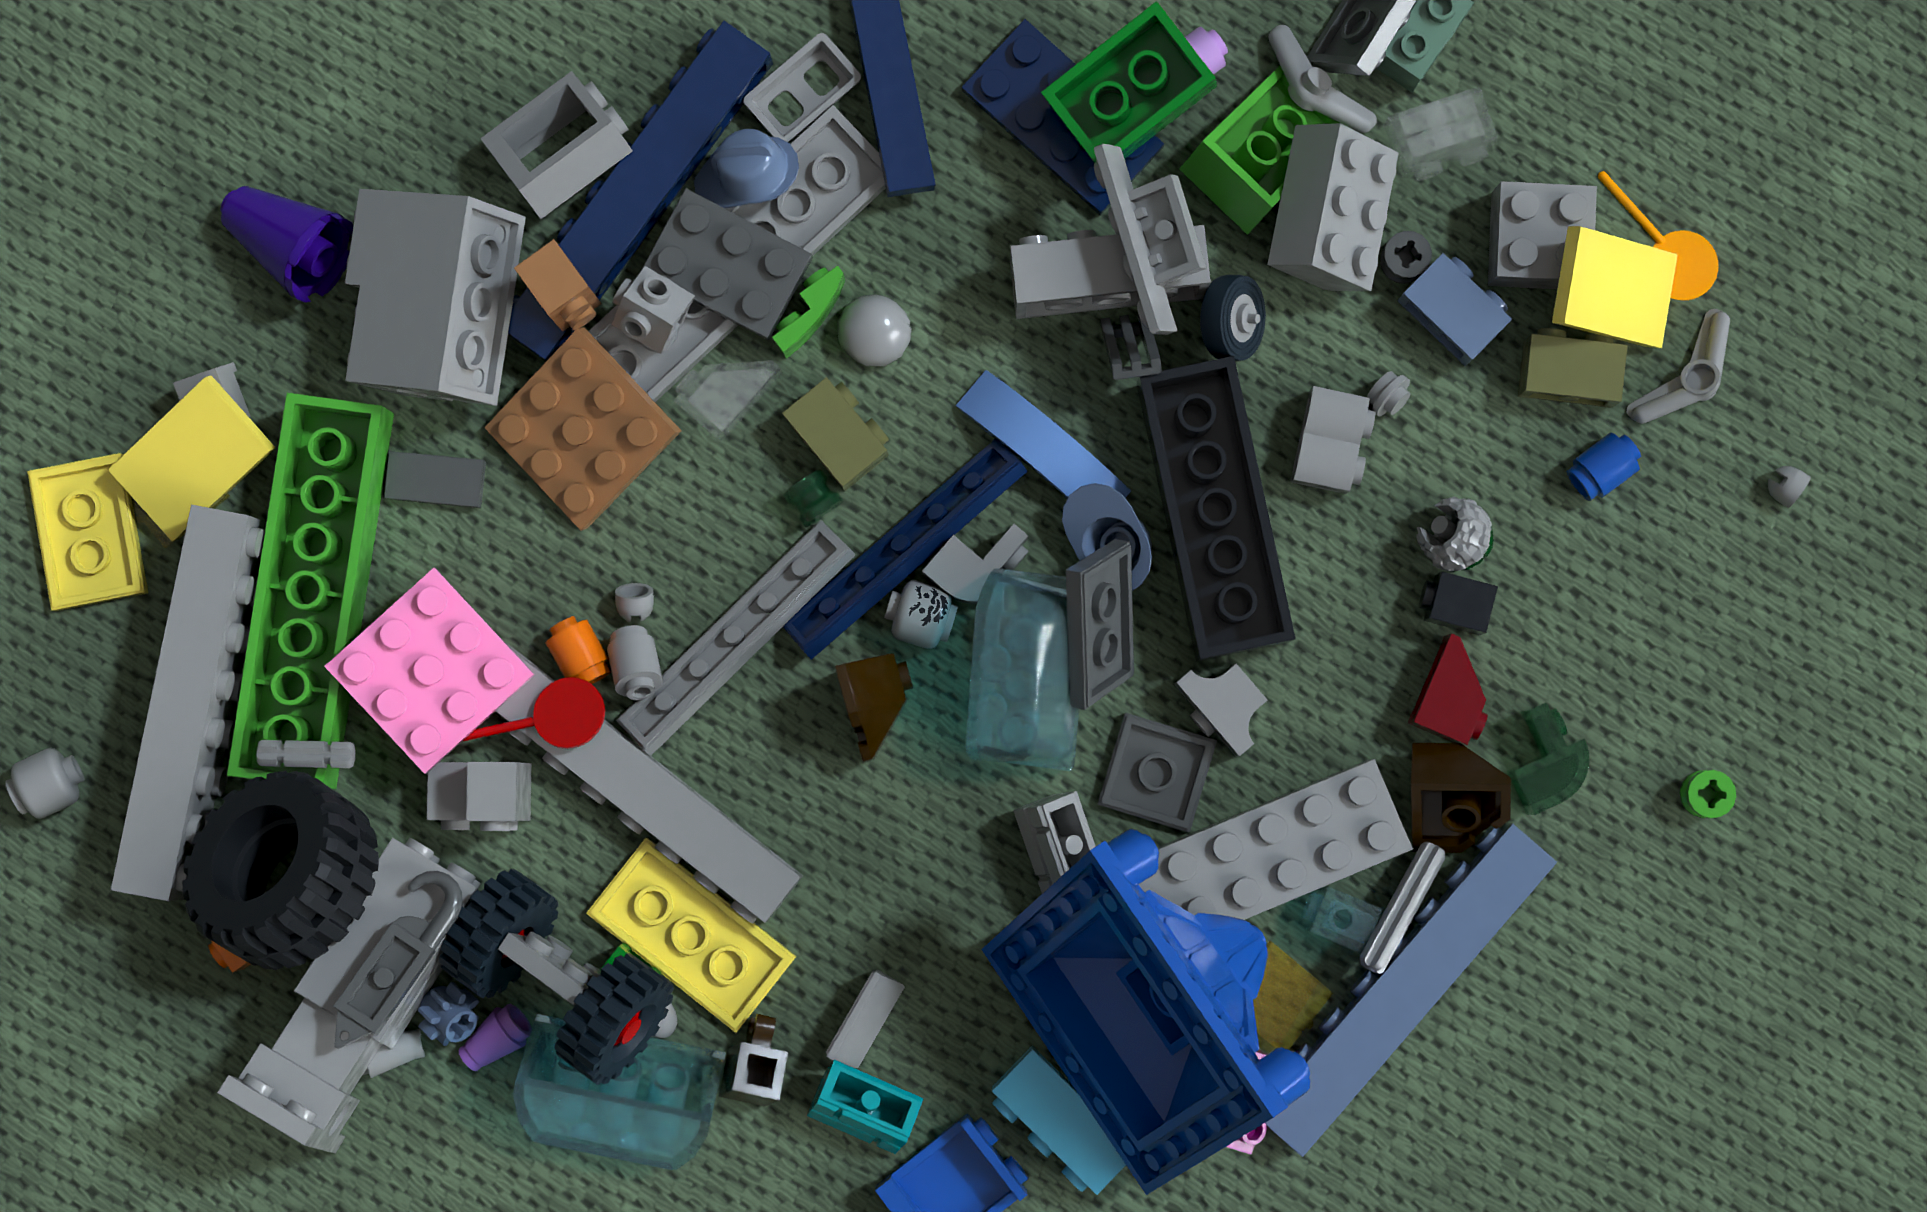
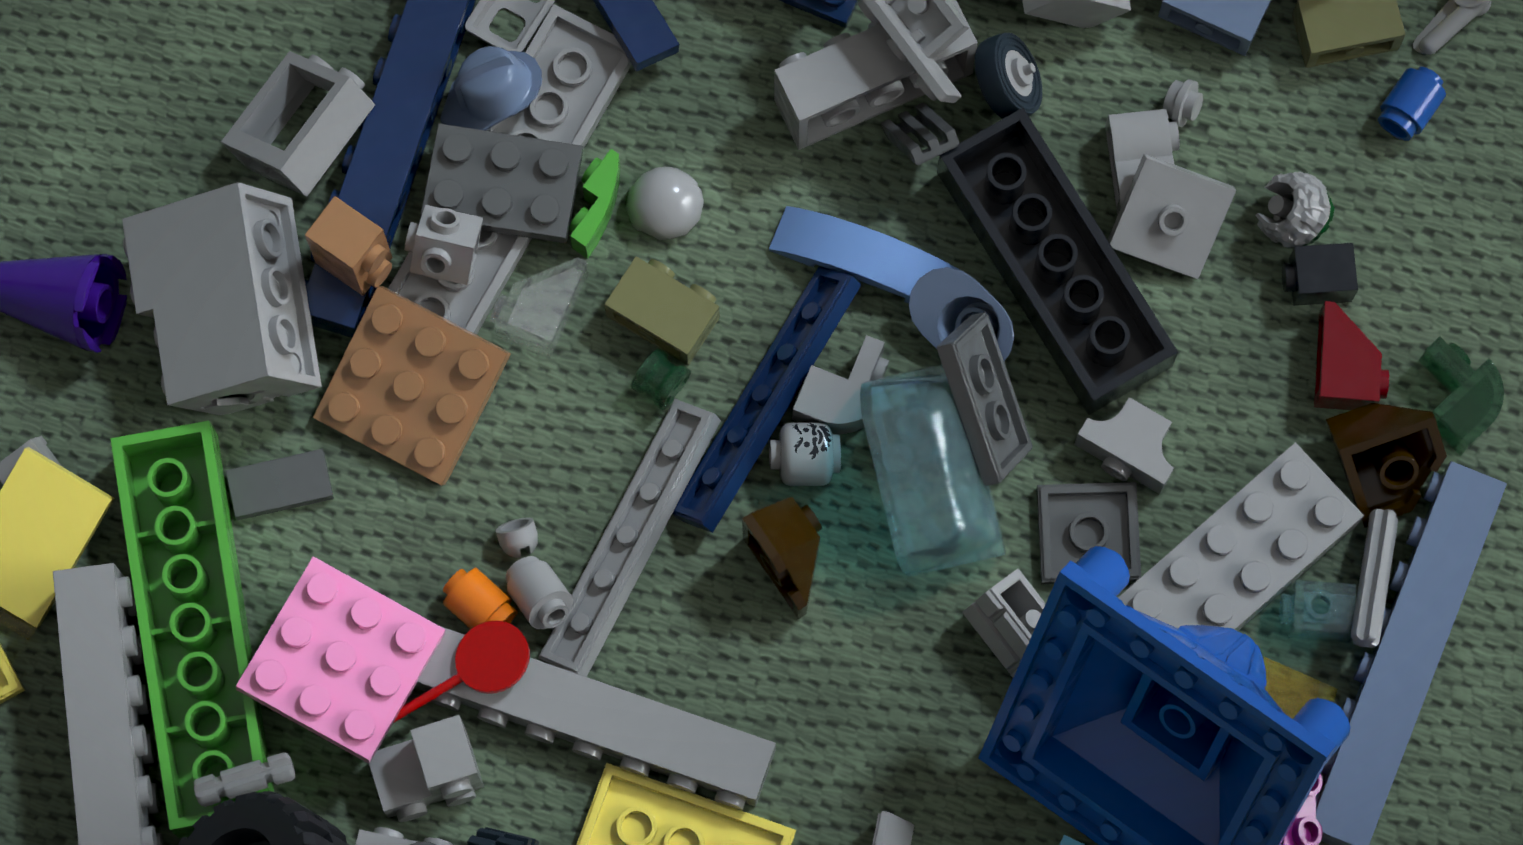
camera: 25 degrees left, 10 degrees down
(1337, 503) = (1171, 216): none -> light grey plate

